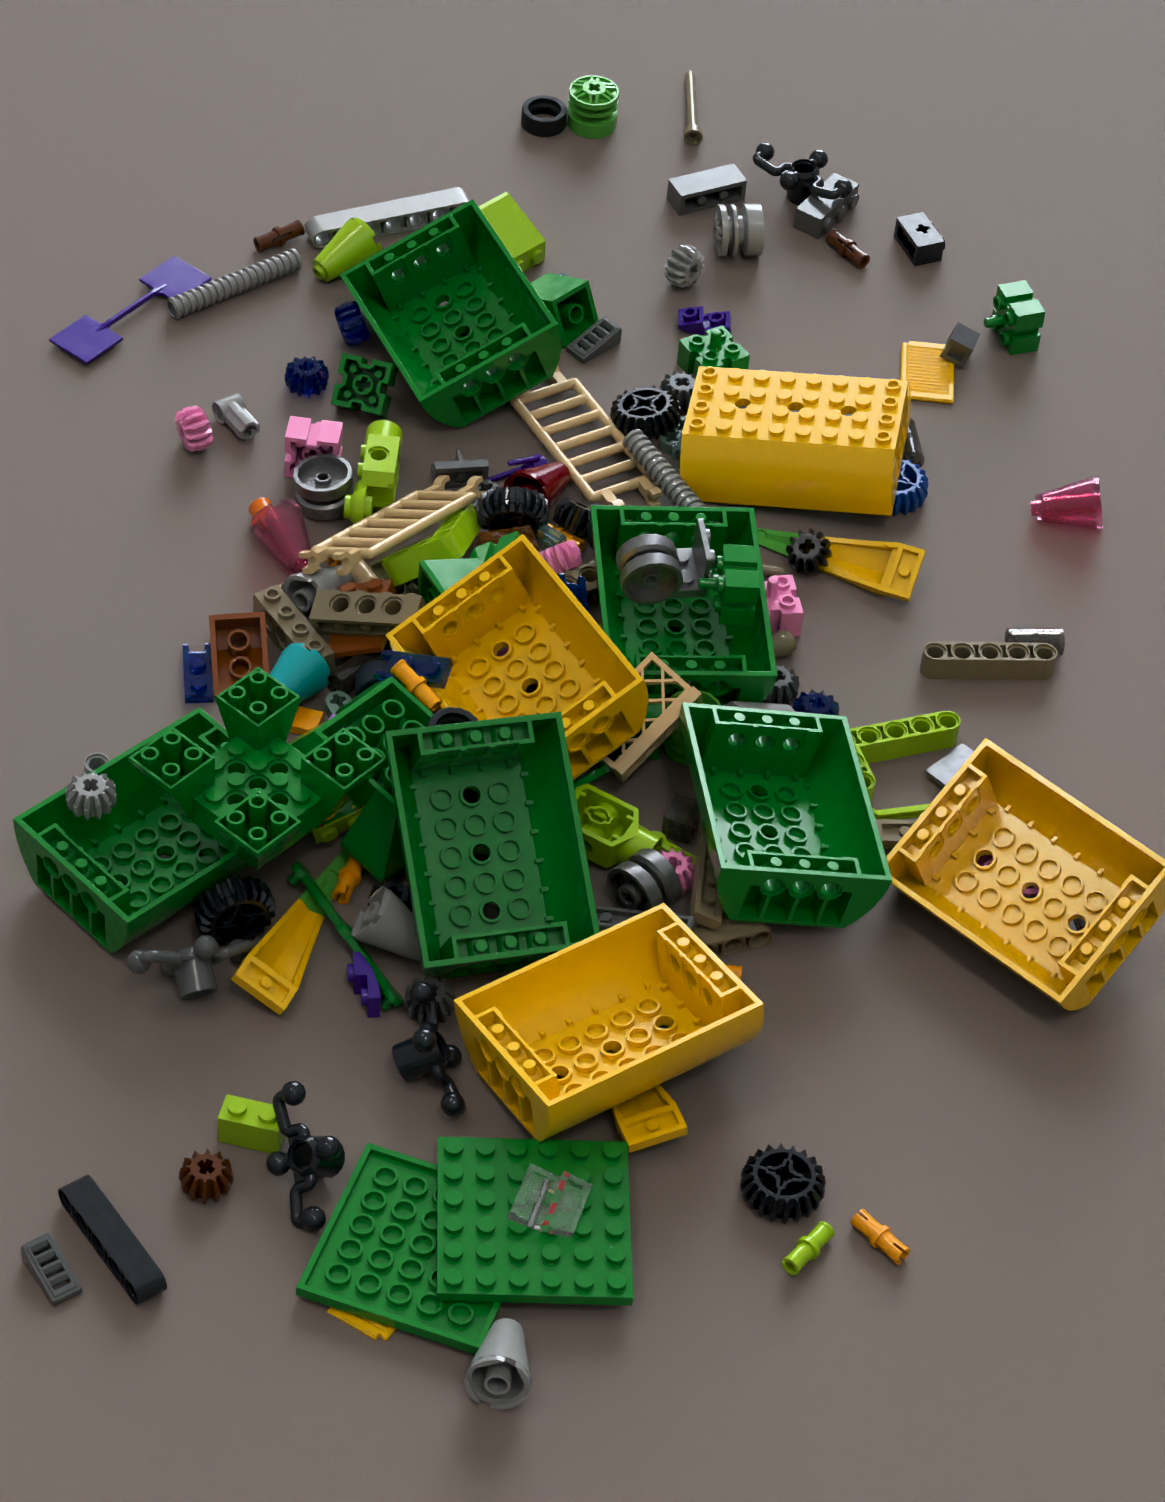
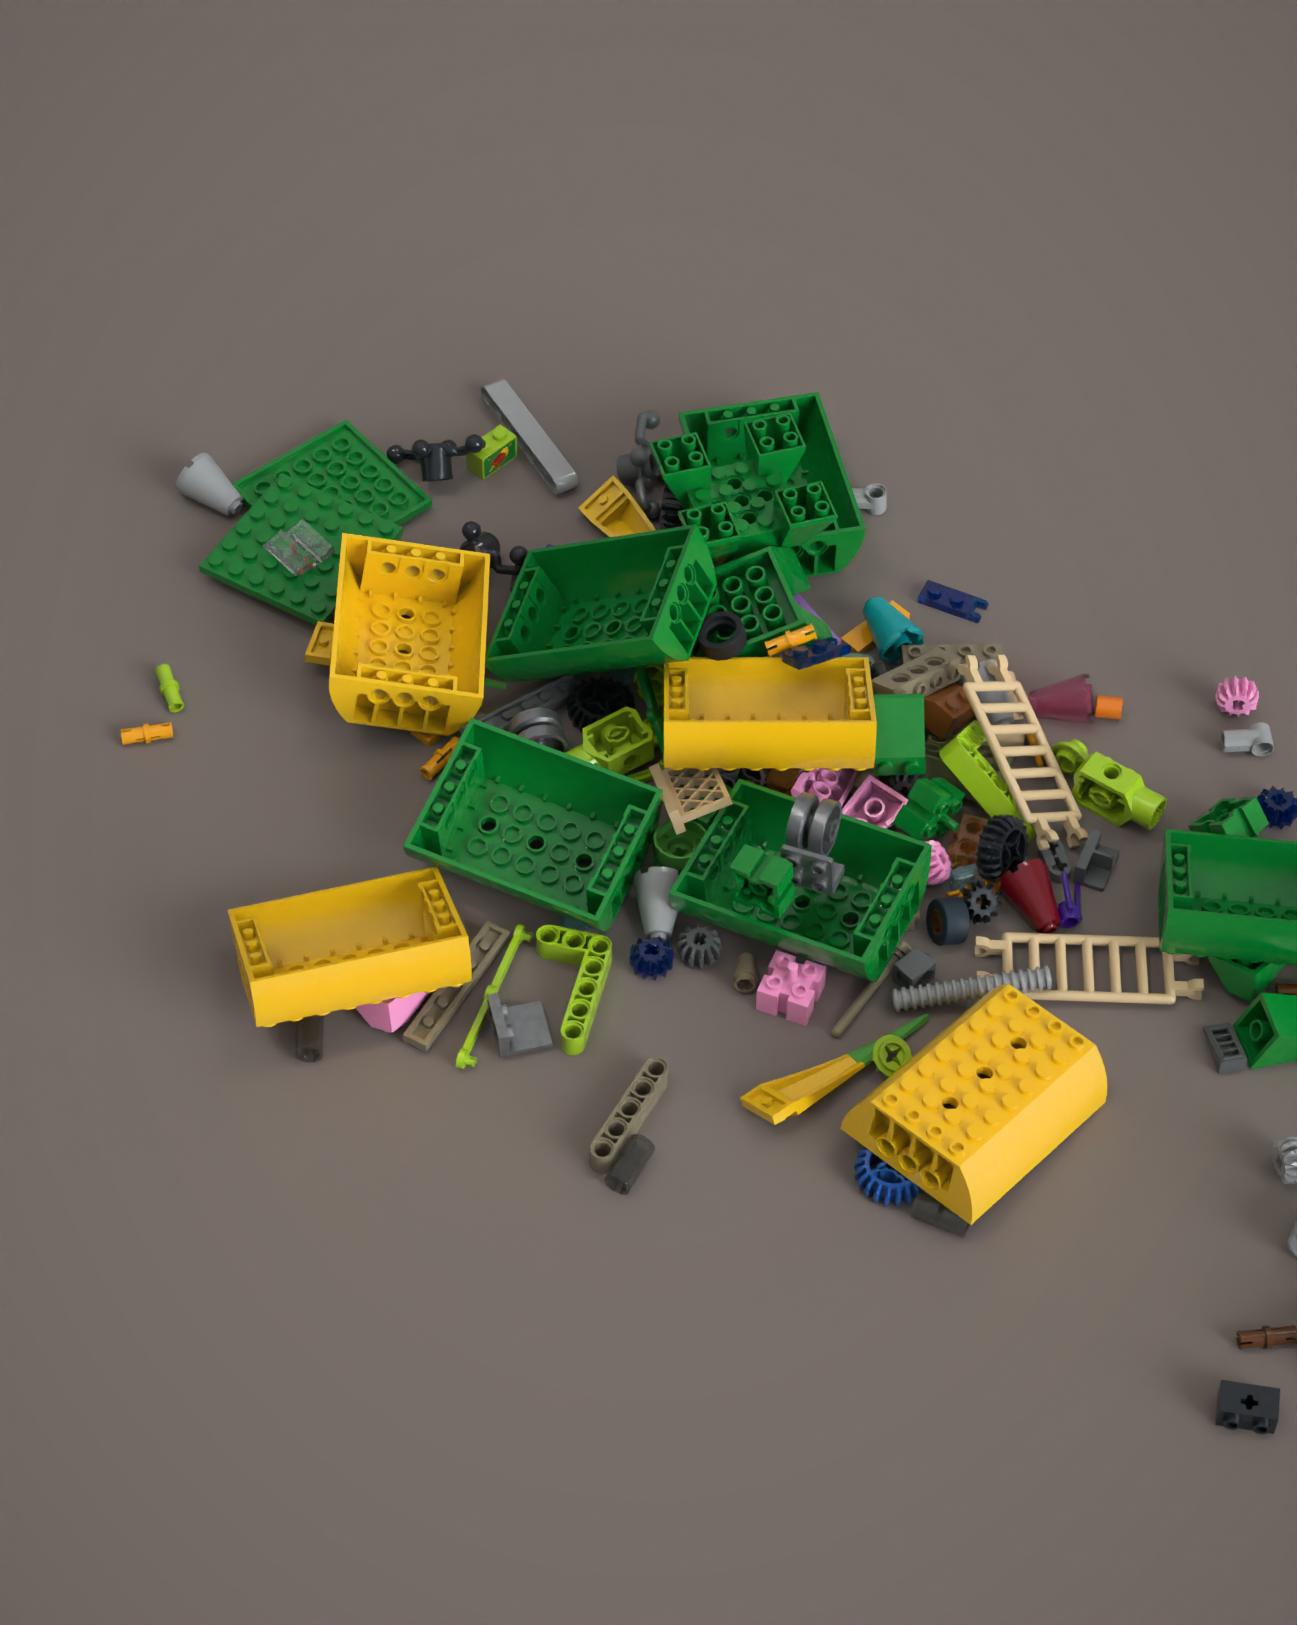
camera: 125 degrees right, 5 degrees up
(42, 1251) = (463, 326): dark grey slope -> none
(91, 795) = (809, 424): light grey gear -> none
(112, 1239) = (455, 357): black beam -> none
(197, 1108) = (530, 437): none -> light grey beam
(206, 1176) = (468, 416): reddish brown gear -> none
(237, 647) = (954, 621): dark orange slope -> none
(310, 439) = (1165, 757): bright pink brick -> none
(322, 486) = (1118, 740): flat silver wheel -> none
(648, 410) = (1094, 1018): black gear -> none
(681, 386) = (1119, 1071): dark grey gear -> none
(696, 322) = (1211, 1151): dark purple slope -> none
(713, 350) = (1143, 1118): green brick -> none
(783, 521) = (888, 1044): none -> lime gear
(799, 1192) = (228, 703): black gear -> none
(808, 551) = (838, 1048): black gear -> none
(928, 373) = (1044, 1306): yellow window -> none
(960, 345) = (1056, 1339): dark grey brick -> none
(1016, 317) = (1063, 1403): green brick -> none
(1071, 504) = (771, 1296): clear pink cone -> none

